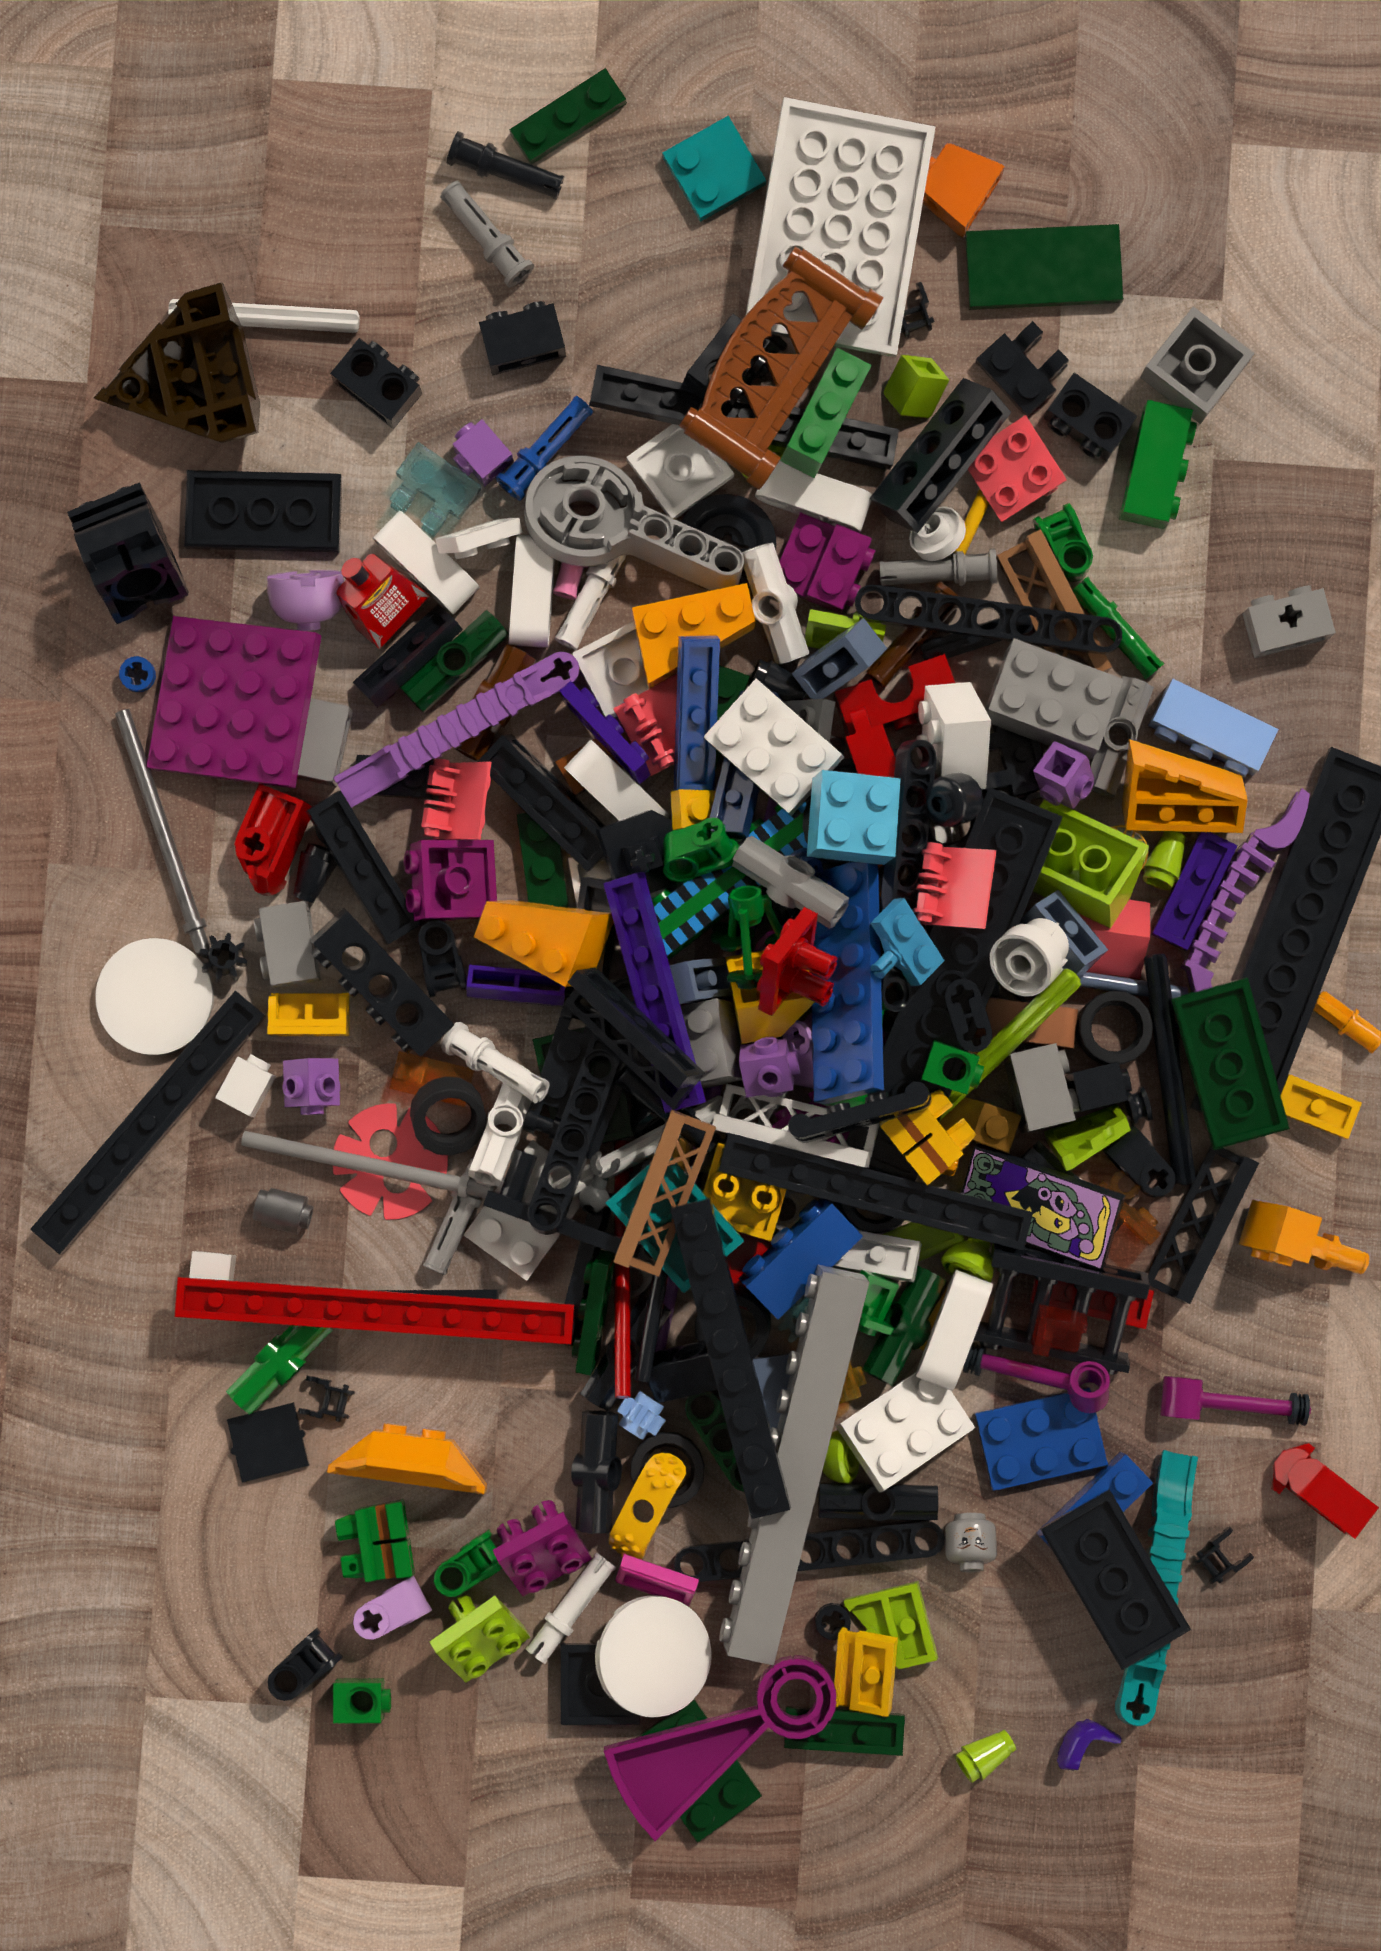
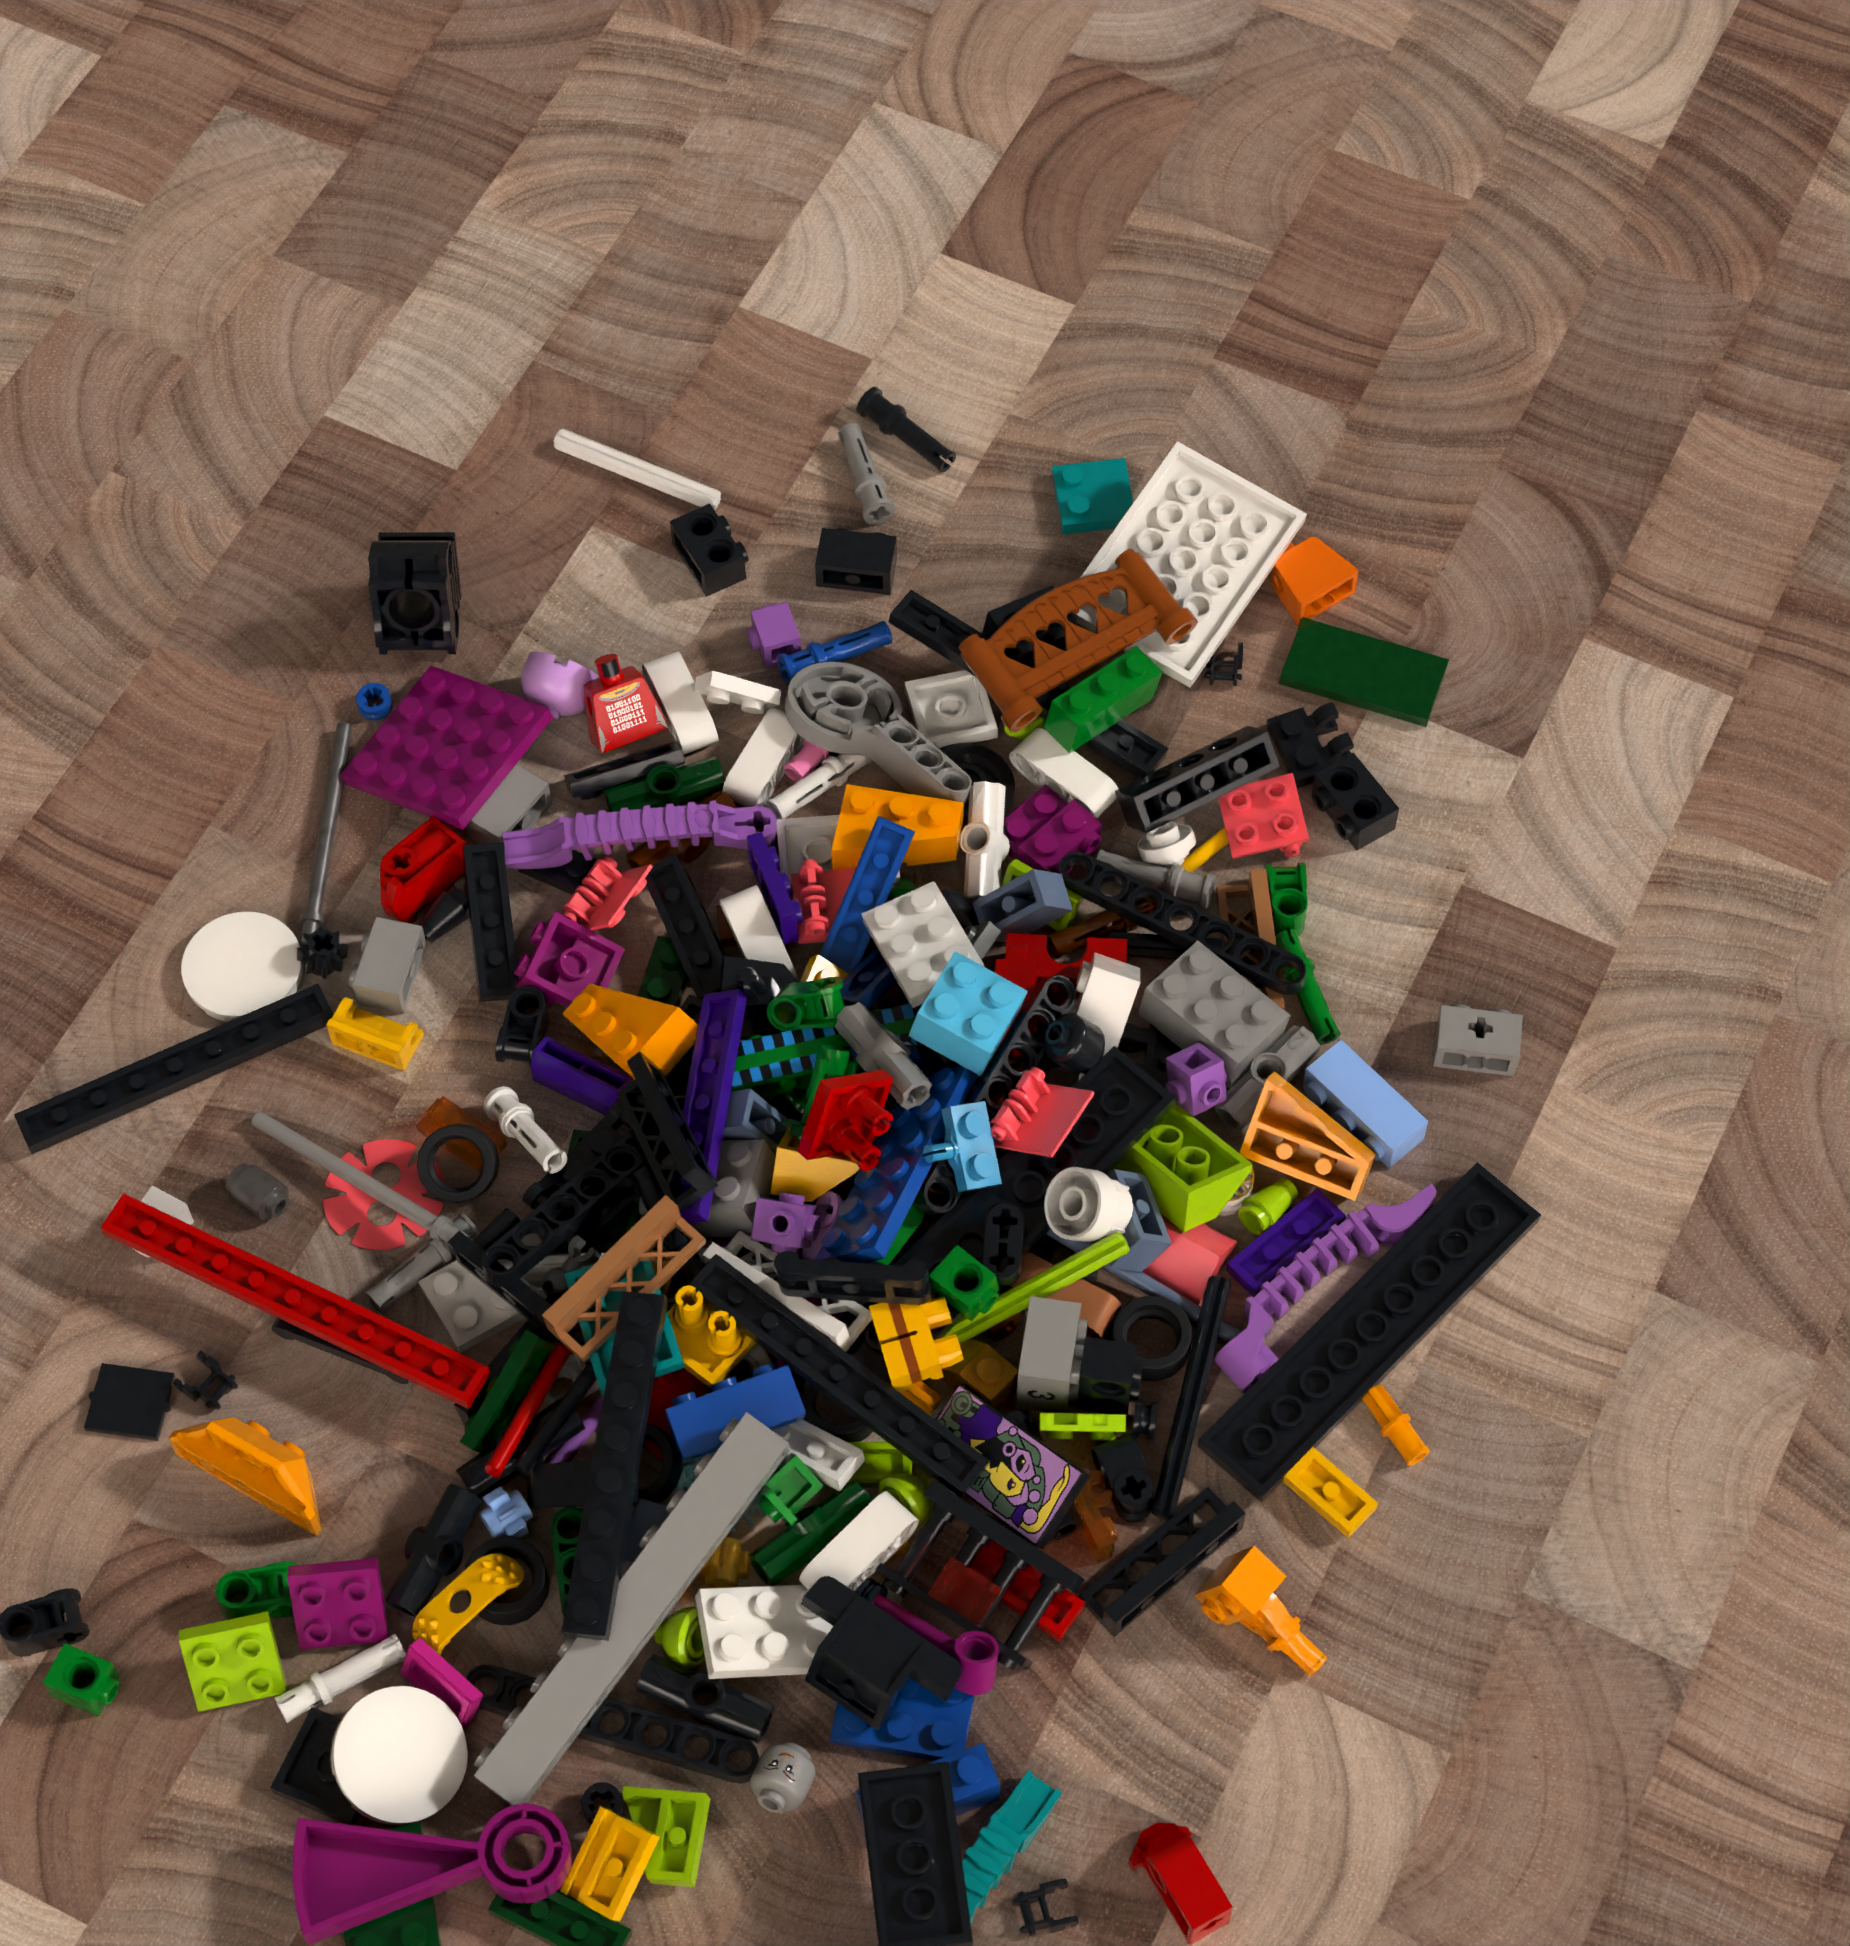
camera: 25 degrees right, 25 degrees down
(192, 371) = (553, 478): dark brown wedge -> none
(246, 1085) = (283, 1069): white brick -> none
(263, 511) = (555, 615): black tile -> none
(275, 1365) = (179, 1326): green piece -> none
(311, 1084) = (344, 1087): medium lavender brick -> none
(381, 1559) = (187, 1534): green hips -> none
(397, 1607) = (163, 1603): lavender piece -> none
(429, 1021) = (443, 959): black brick -> none
(438, 481) = (722, 641): clear light blue plate -> none
(498, 1146) = (491, 1197): white piece -> none
(568, 116) = (982, 414): dark green plate -> none
(916, 386) = (1200, 720): lime panel -> none
(1006, 1421) = (871, 1654): none -> black plate
(1157, 464) = (1403, 862): green brick -> none
(1186, 1399) = (1072, 1724): magenta piece -> none
(1196, 364) = (1474, 790): light grey brick -> none
(1230, 1063) = (1254, 1407): dark green tile -> none

